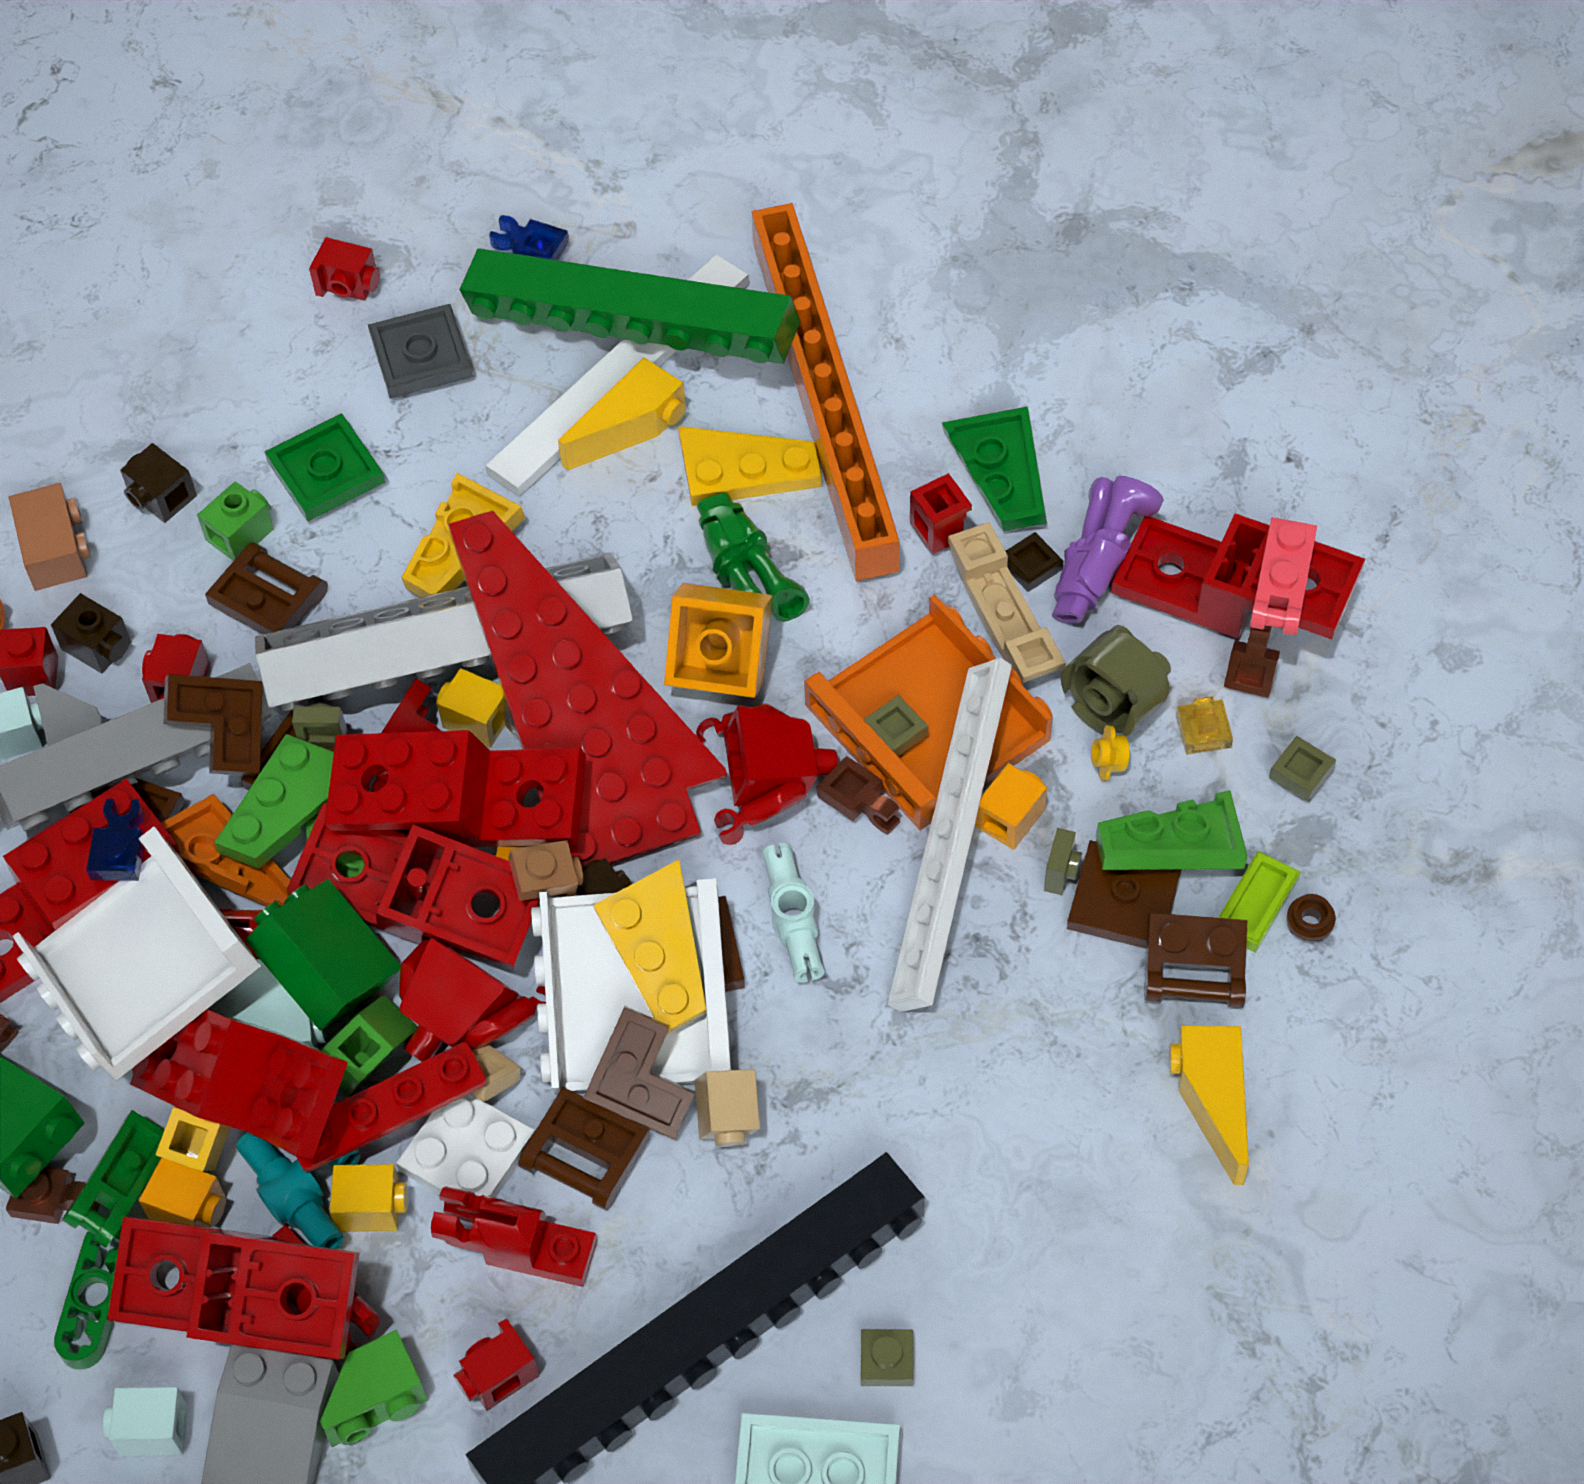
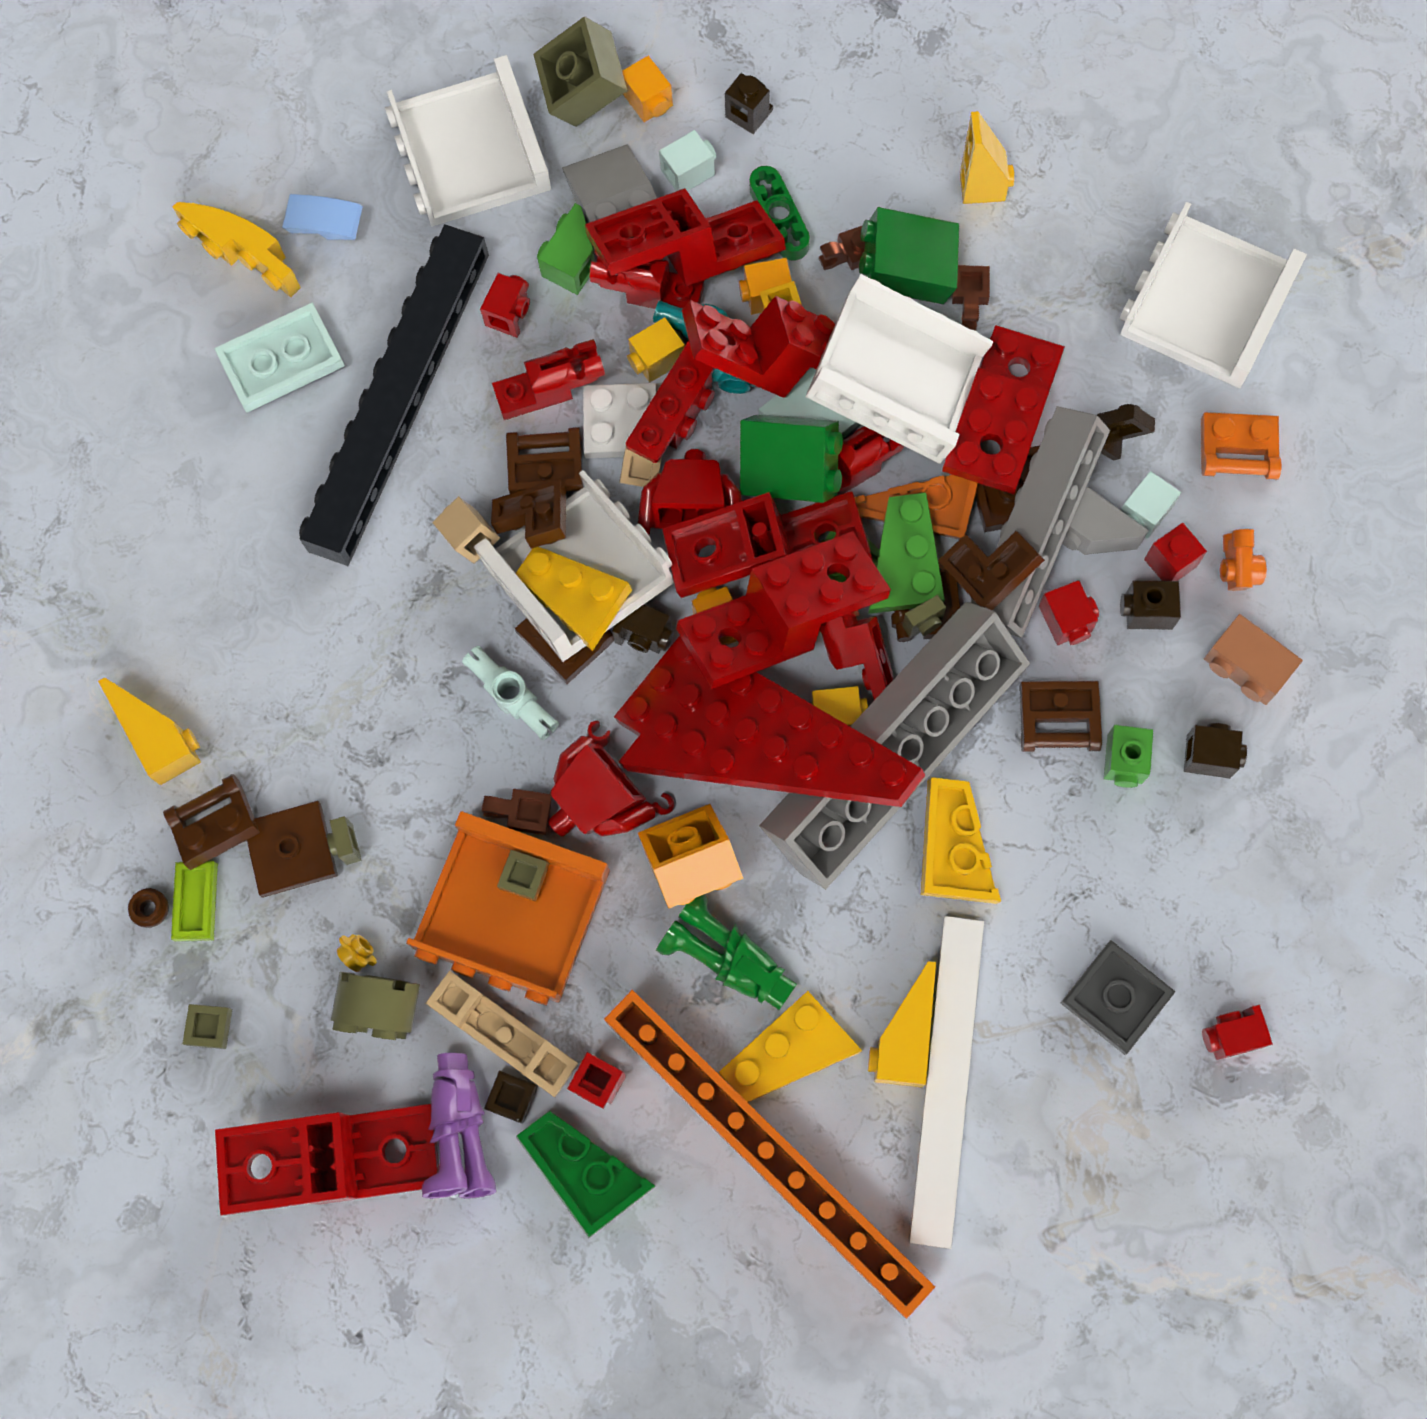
camera: 150 degrees right, 15 degrees up
(117, 850) = (975, 430): clear blue plate -> none
(117, 1178) = (812, 266): green plate -> none
(324, 467) = (1104, 844): green plate -> none
(369, 1041) = (721, 430): bright green slope -> none
(533, 240) = (1108, 1166): clear blue plate -> none
(545, 869) = (678, 588): medium nougat bracket -> none
(631, 306) = (968, 1122): green brick -> none
(886, 1357) = (278, 449): olive plate -> none
(949, 837) = (432, 815): white tile -> none
(1011, 805) = (403, 865): light orange brick -> none
(1179, 839) = (267, 906): bright green wing -> none
(1204, 726) = (301, 1025): clear yellow tile -> none
(1252, 664) = (284, 1094): copper plate -> none
(1283, 575) = (273, 1150): coral plate -> none

